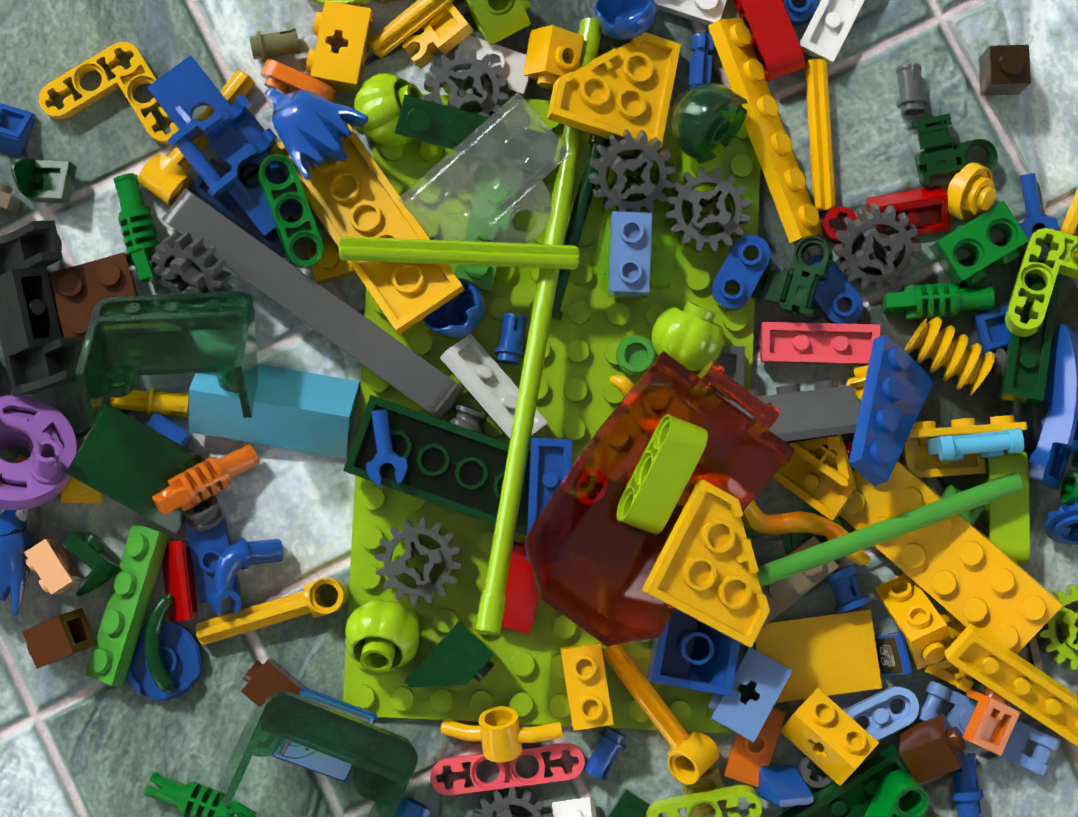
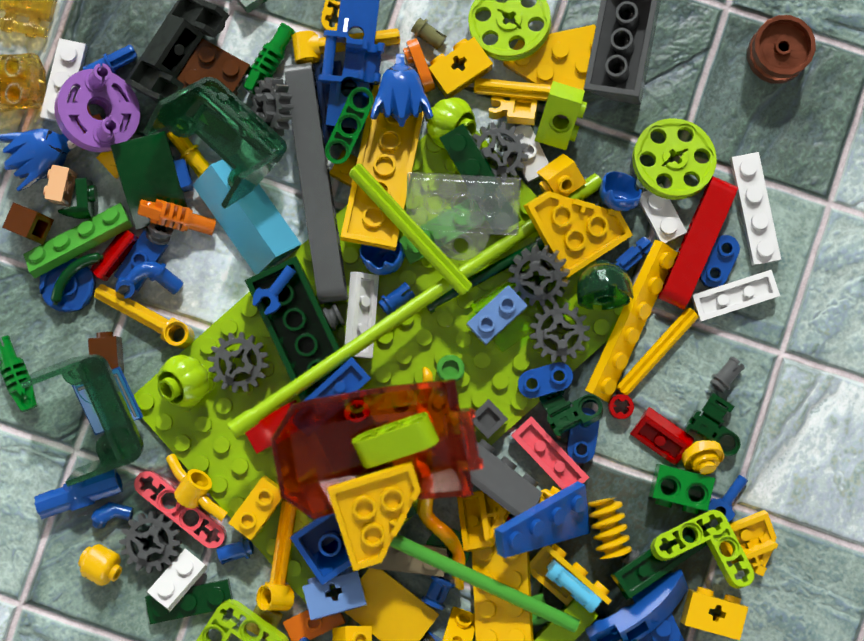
camera: 55 degrees right, 0 degrees up
(454, 660) = (206, 429): dark green slope -> none
(689, 336) = (483, 386): lime plant -> none
(891, 239) = (615, 438): dark grey gear -> none
(937, 301) = (631, 495): green hinge -> none
(992, 329) = (644, 536): blue tile -> none
(1004, 70) = (785, 412): dark brown brick -> none

